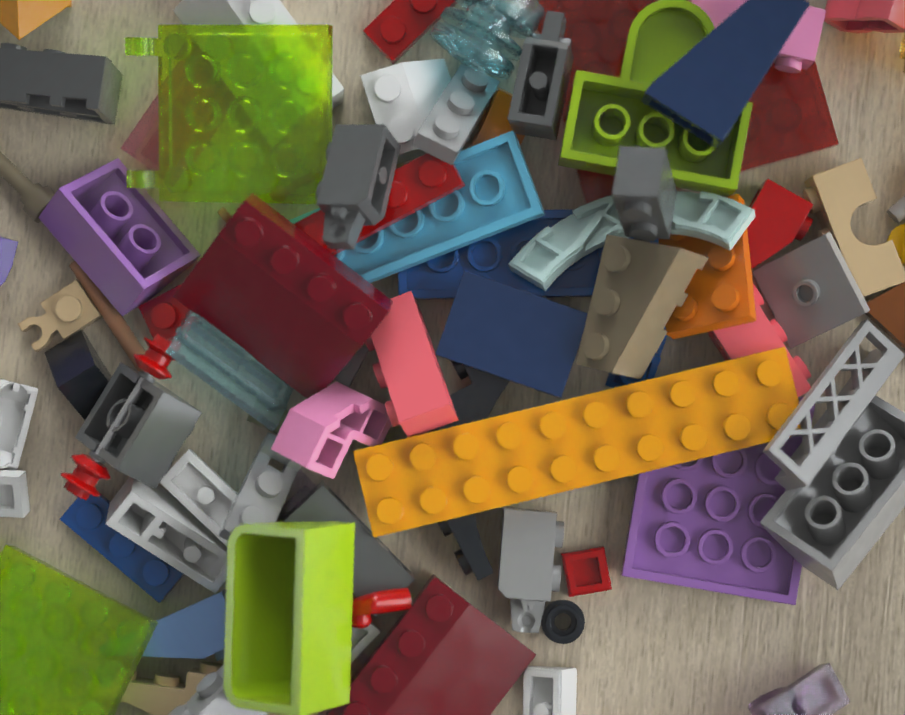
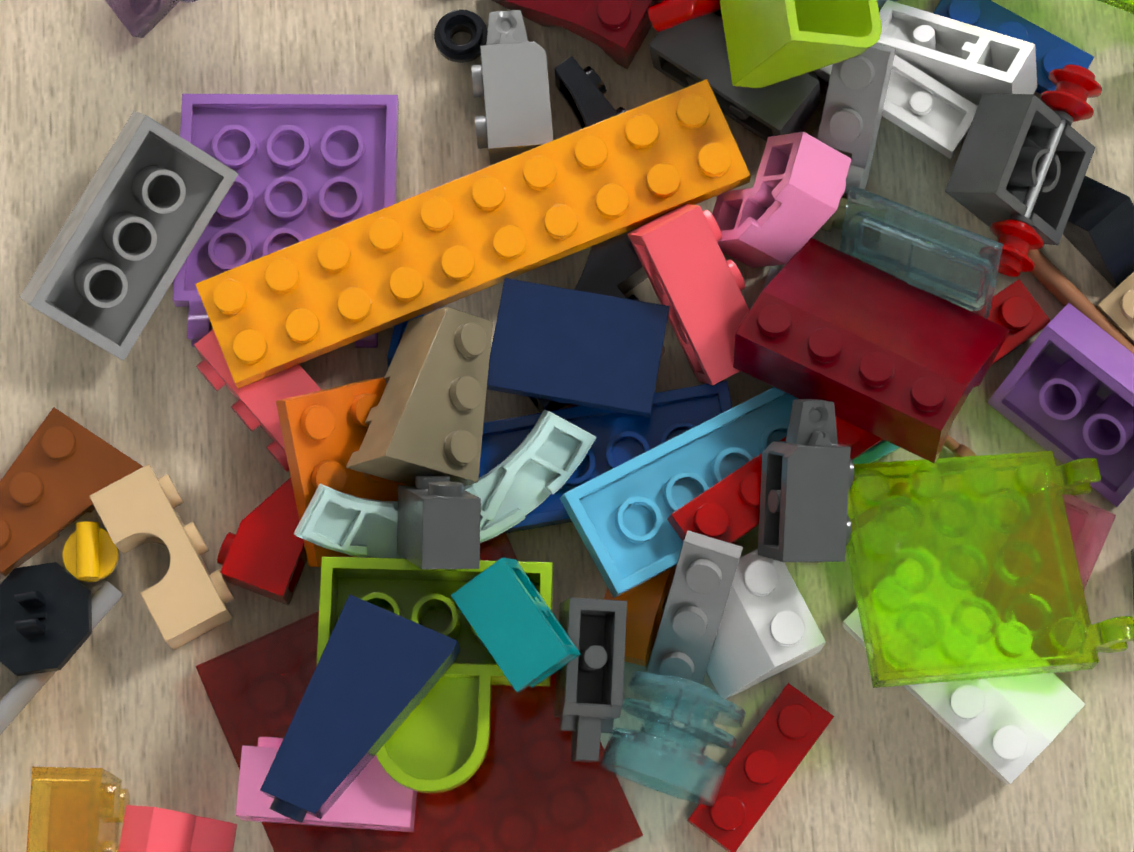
camera: 170 degrees right, 10 degrees down
(586, 571) = (441, 99): red tile -> none
(596, 105) = (515, 624): none -> teal hinge
(811, 290) = (208, 469): light grey plate -> none
(841, 410) = (157, 320): light grey fence -> none

